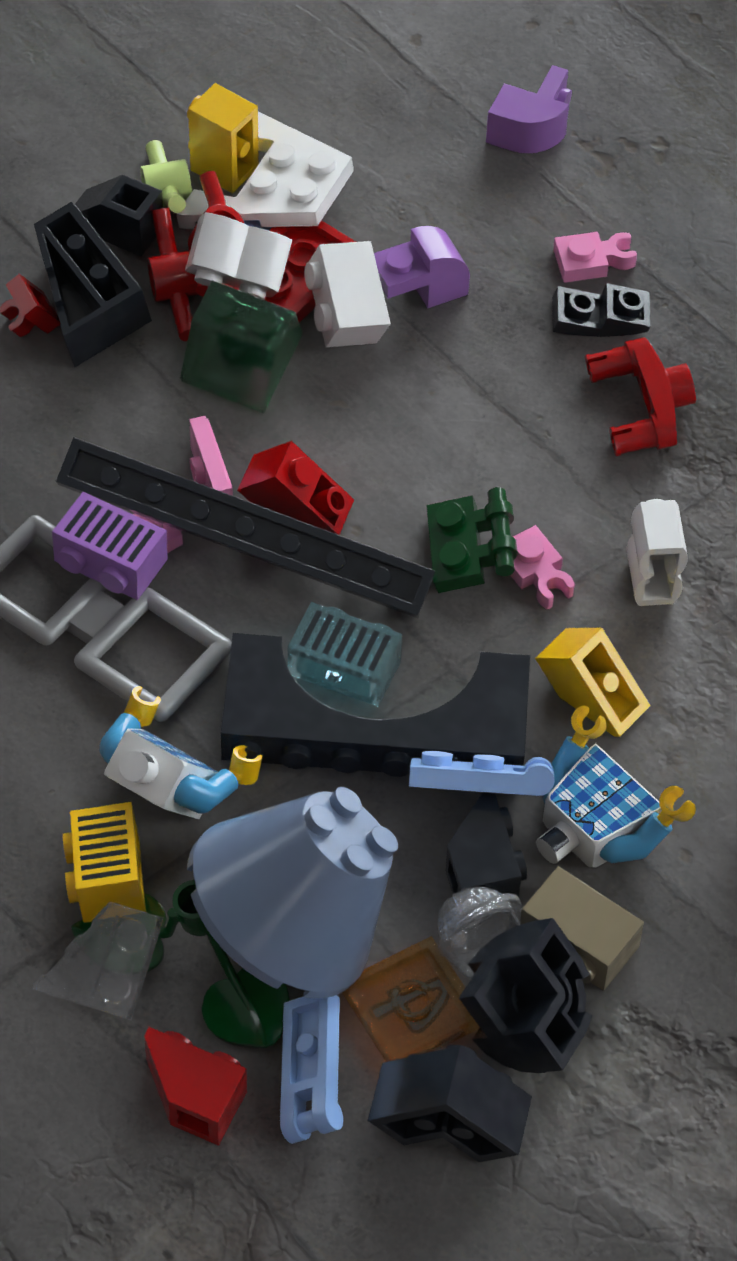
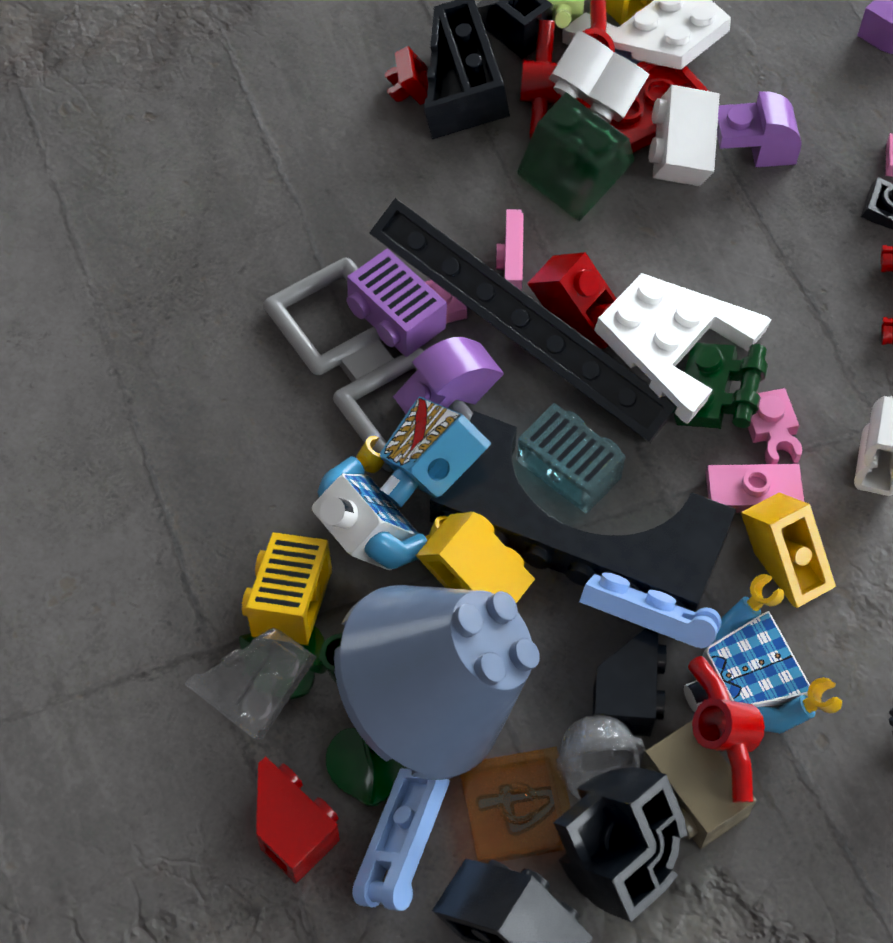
camera: 20 degrees right, 5 degrees up
(188, 603) = (450, 372): none -> medium lavender brick
(204, 683) = (429, 451): none -> dark azure torso
(281, 770) = (471, 557): none -> yellow brick
(389, 496) = (659, 324): none -> white wing
(535, 628) = (750, 484): none -> bright pink plate
(594, 861) = (727, 727): none -> red piece

